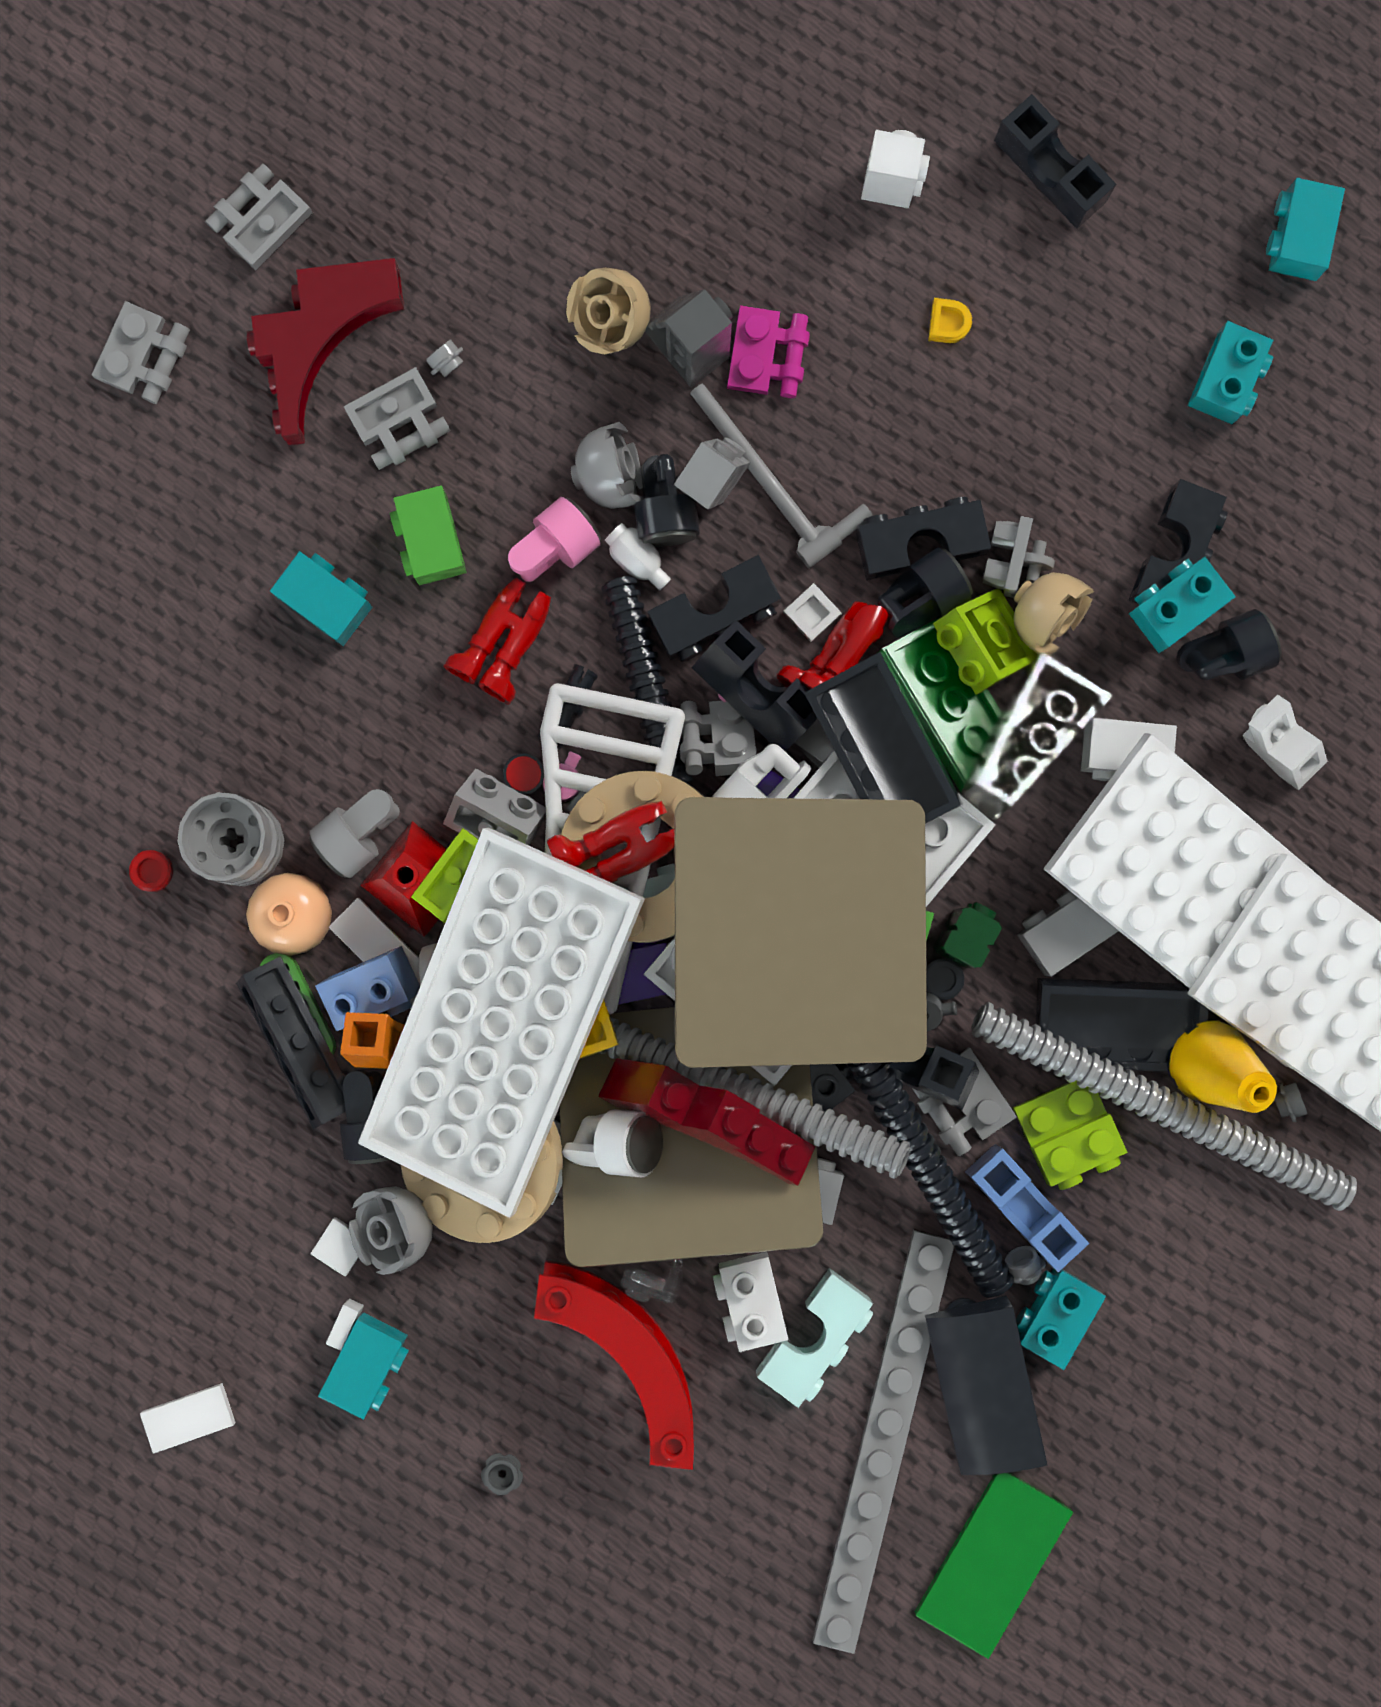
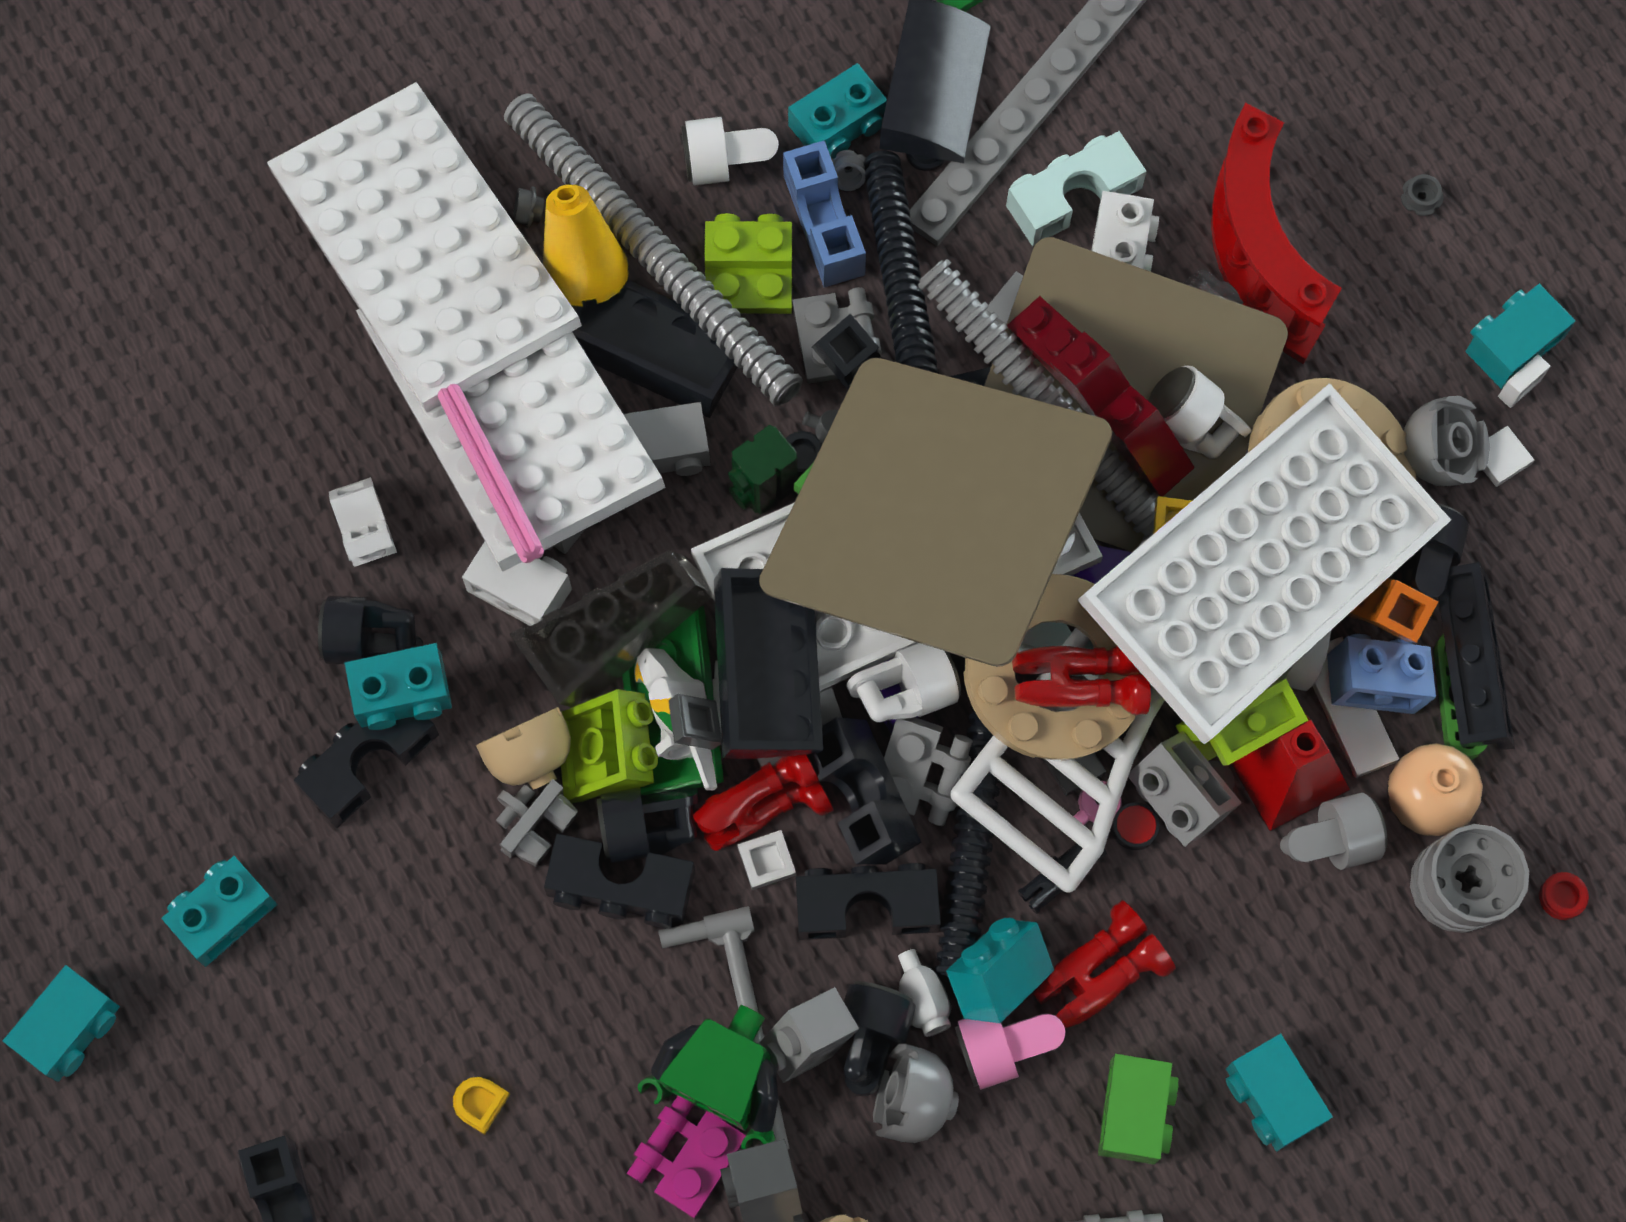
camera: 150 degrees left, 15 degrees down
(582, 592) = (1000, 970): none -> teal brick
(767, 410) = (721, 1073): none -> green torso
(921, 671) = (695, 721): none -> dark grey tile
(938, 686) = (663, 681): none -> white animal
(1151, 1222) = (711, 150): none -> white piece
(1198, 810) = (490, 474): none -> bright pink axle

